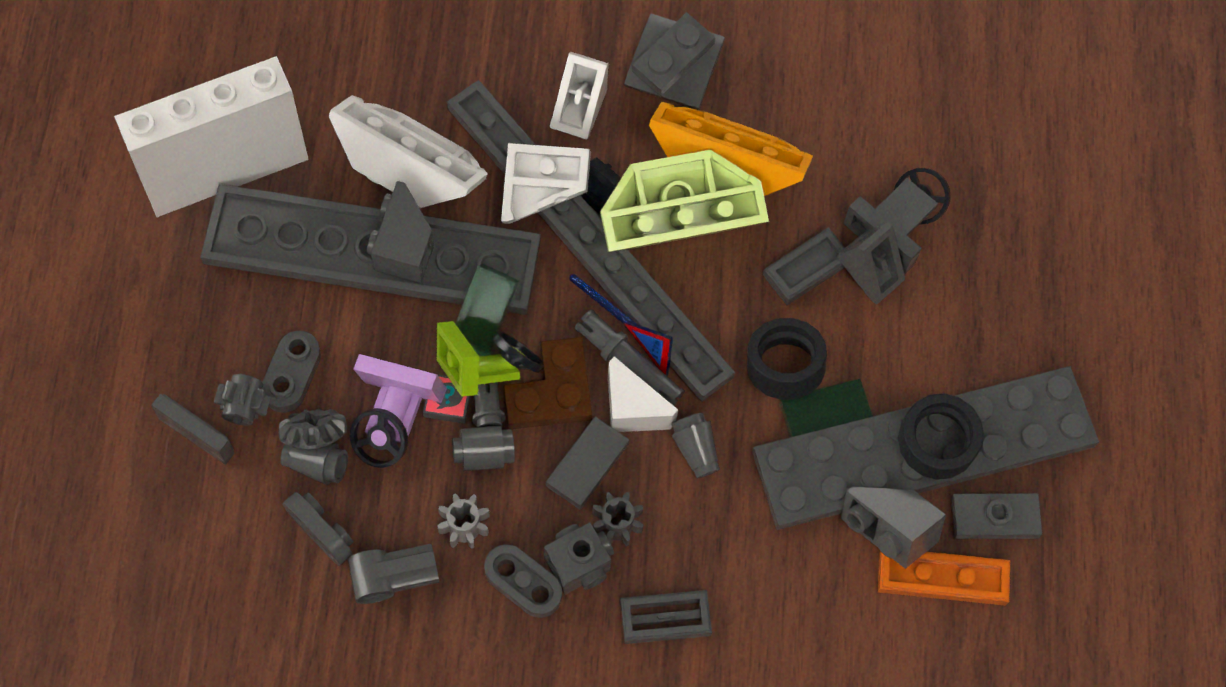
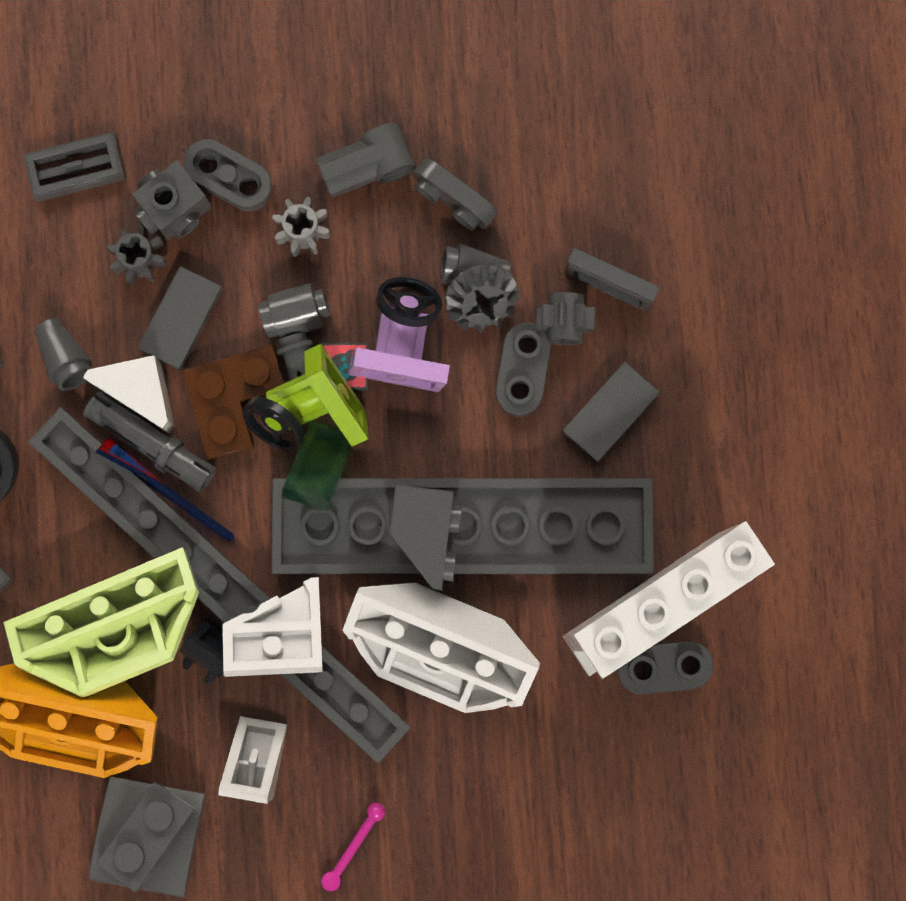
camera: 175 degrees right, 15 degrees up
(223, 323) = (610, 412): none -> dark grey tile
(533, 13) = (332, 879): none -> dark pink hinge

